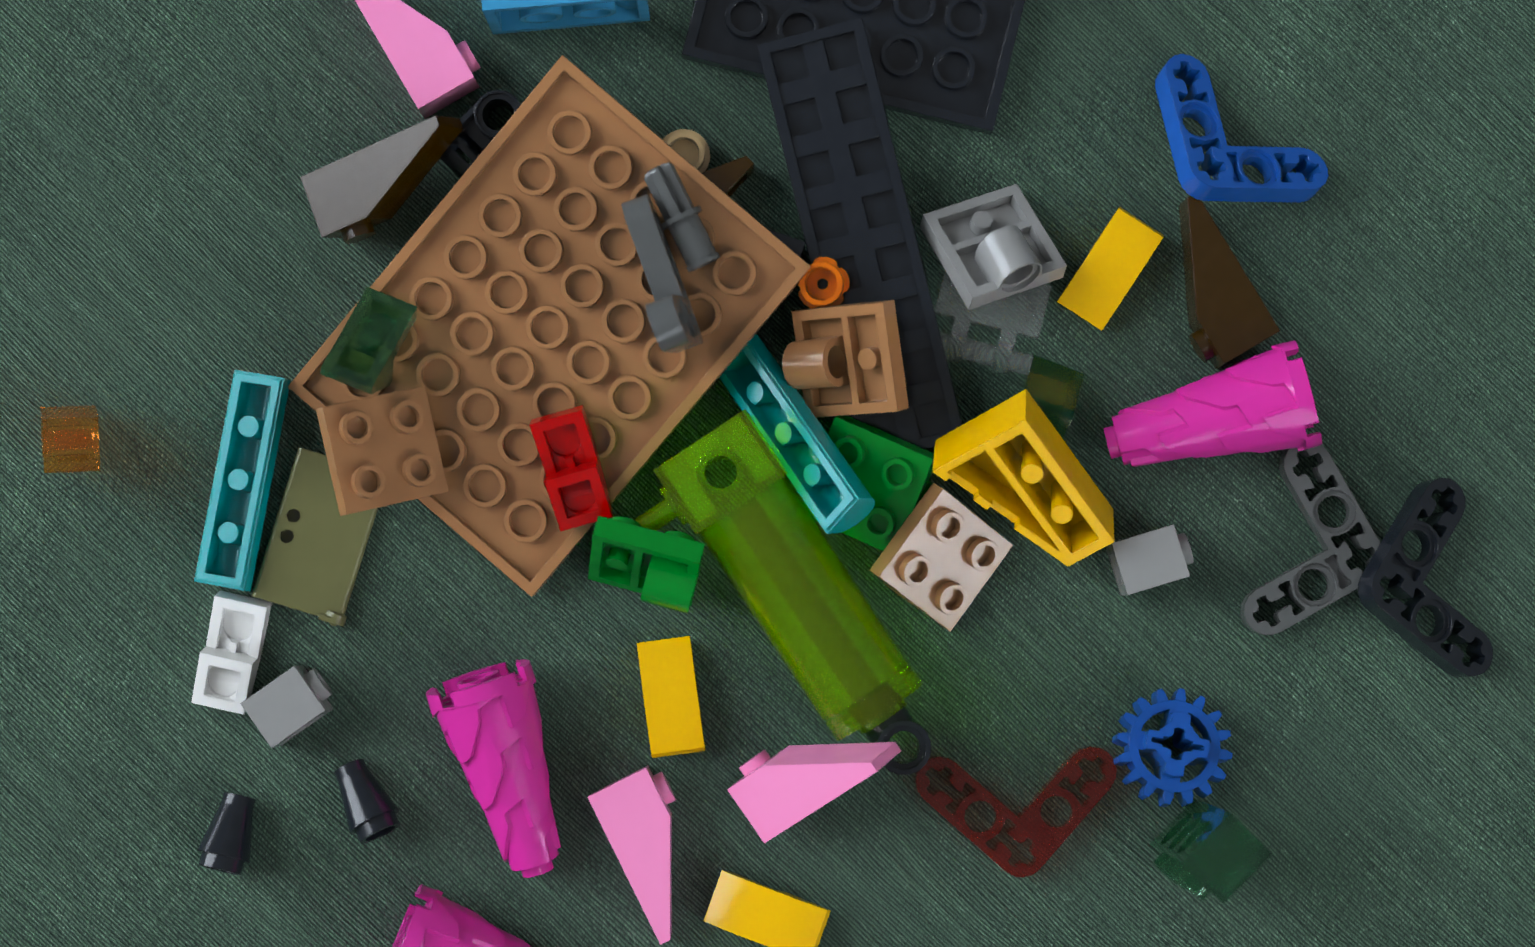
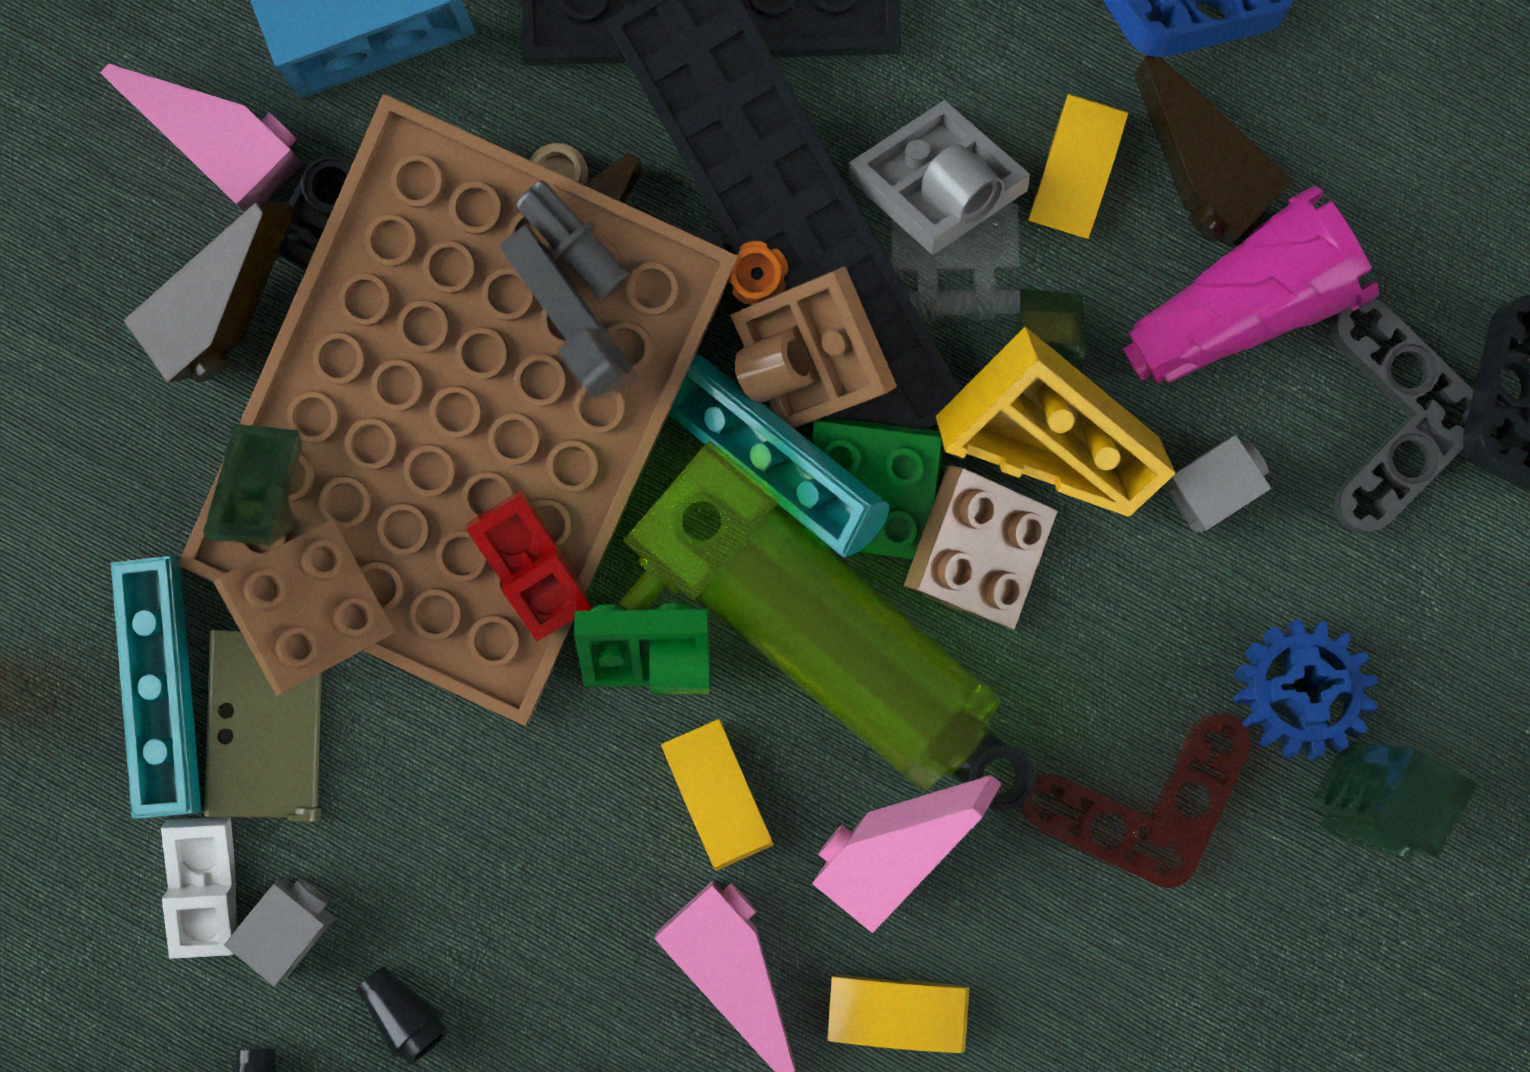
camera: 15 degrees left, 0 degrees up
(498, 739) = (532, 901): dark pink cone -> none

